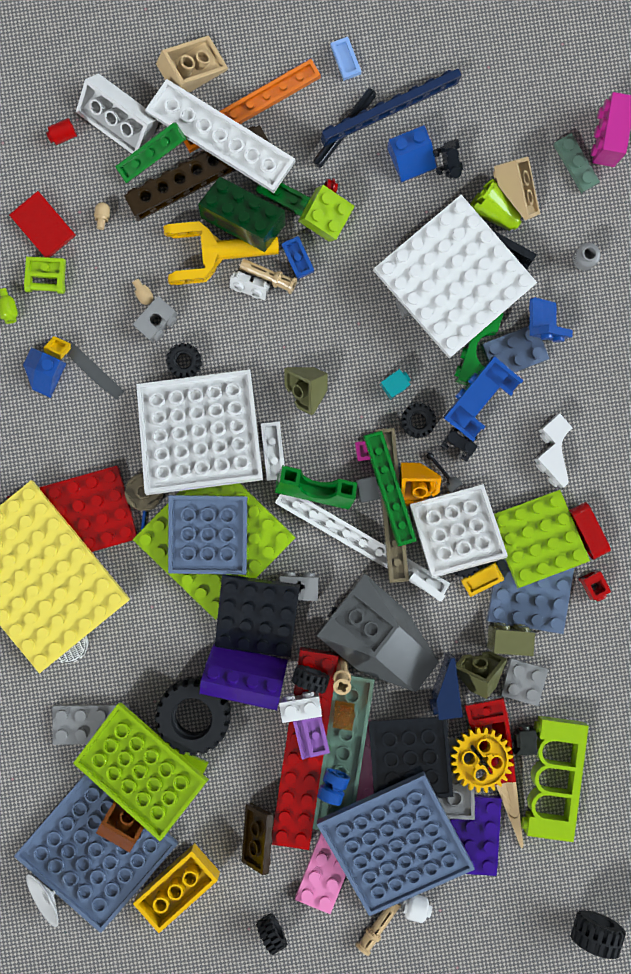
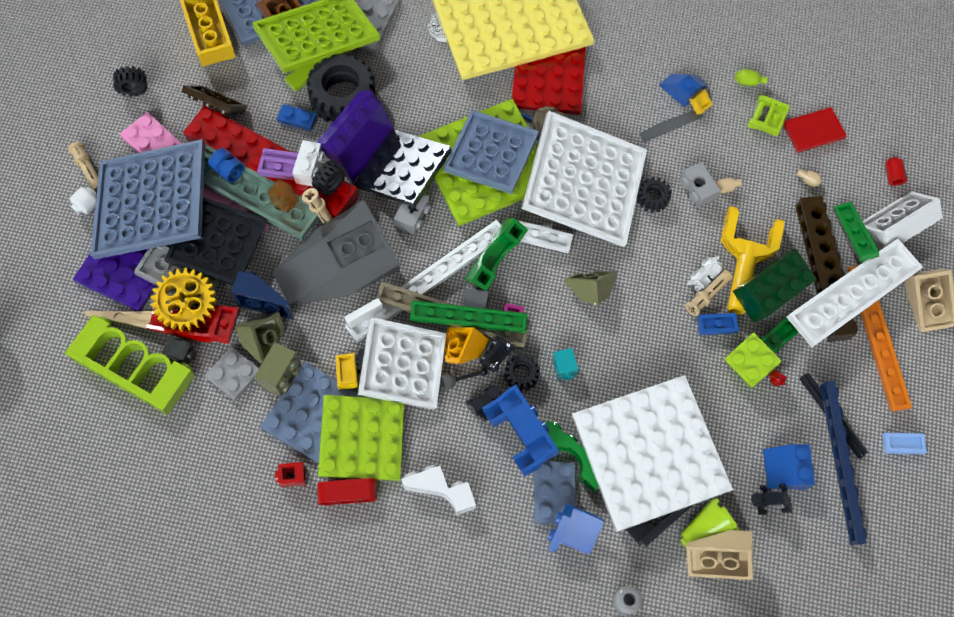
camera: 110 degrees right, 20 degrees down
(238, 747) = (297, 117): none -> blue plate
(413, 450) = (496, 353): none -> black piece

